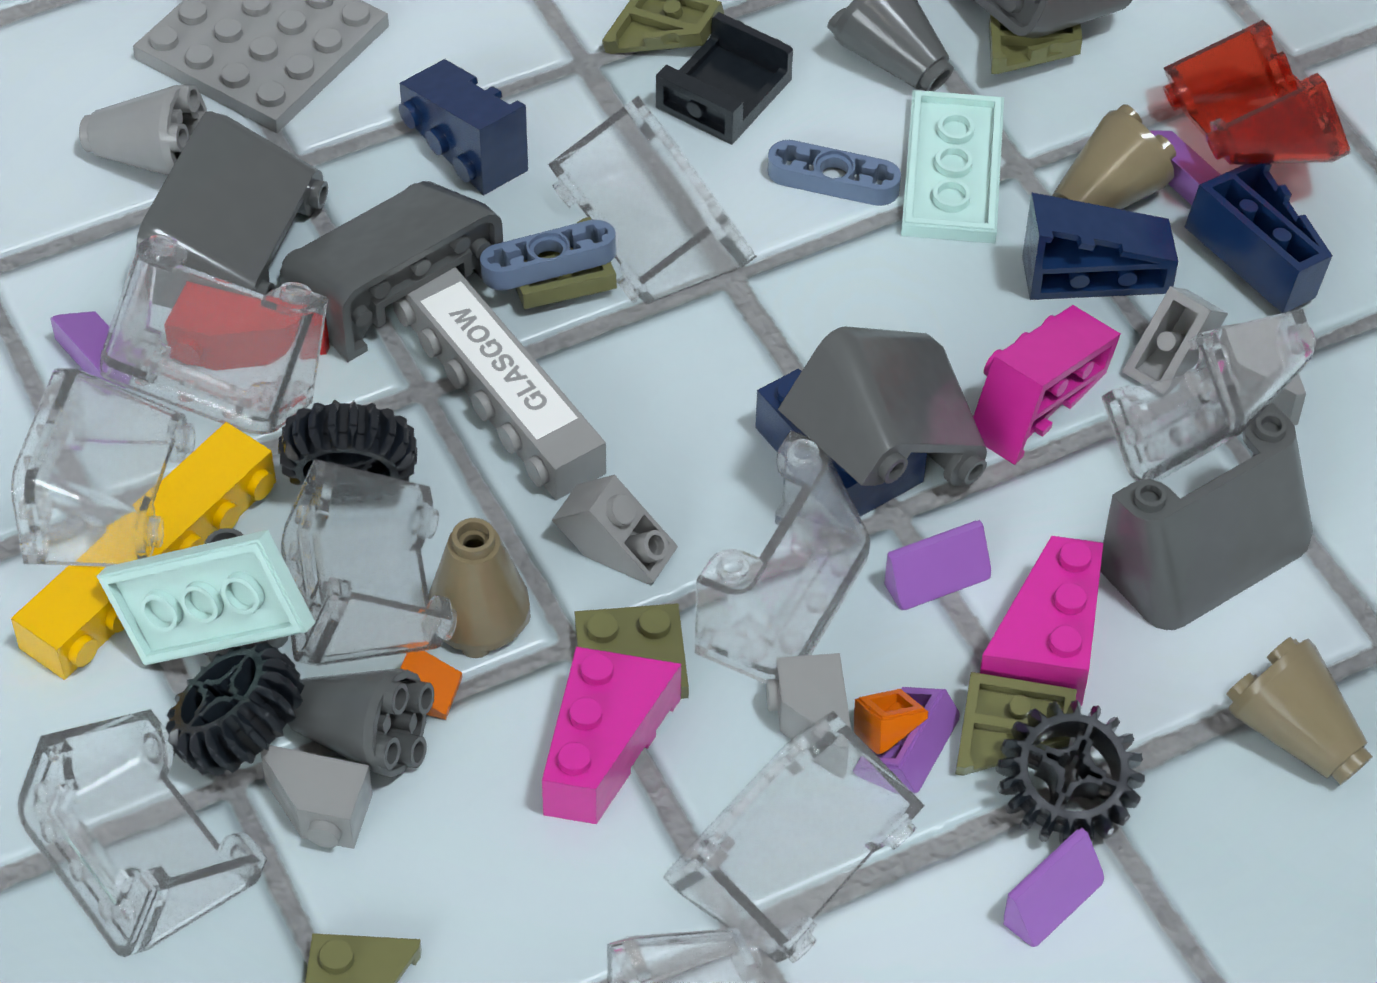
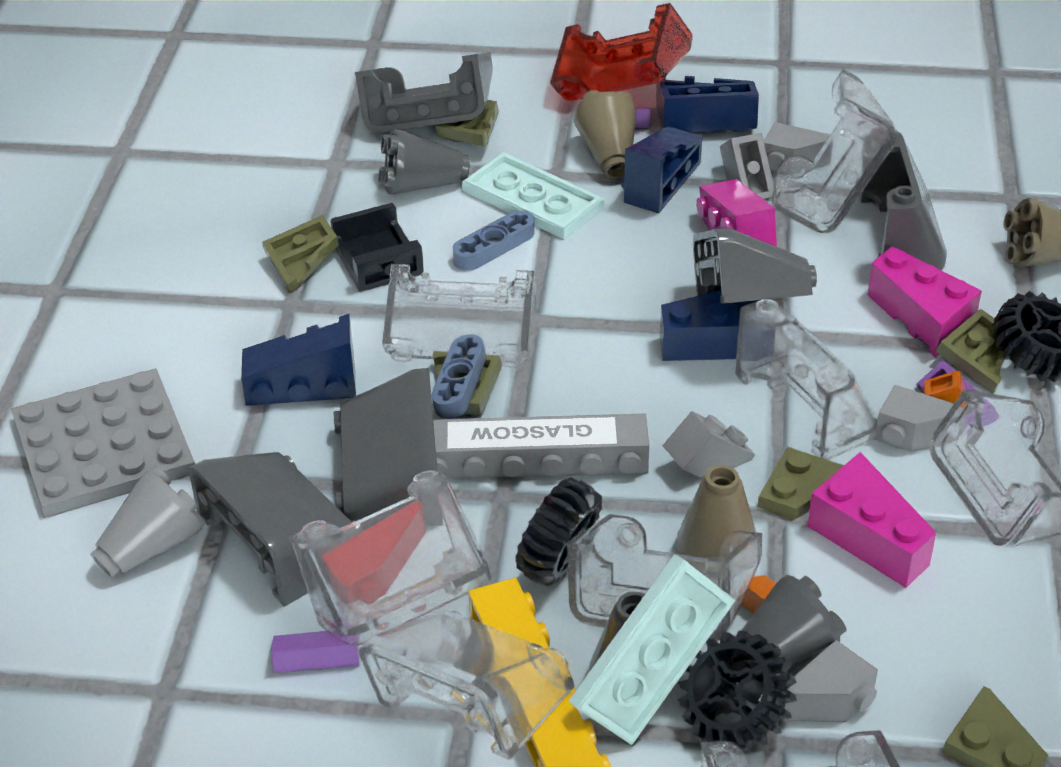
camera: 55 degrees left, 10 degrees down
(938, 565) = (841, 327): medium lavender slope -> none

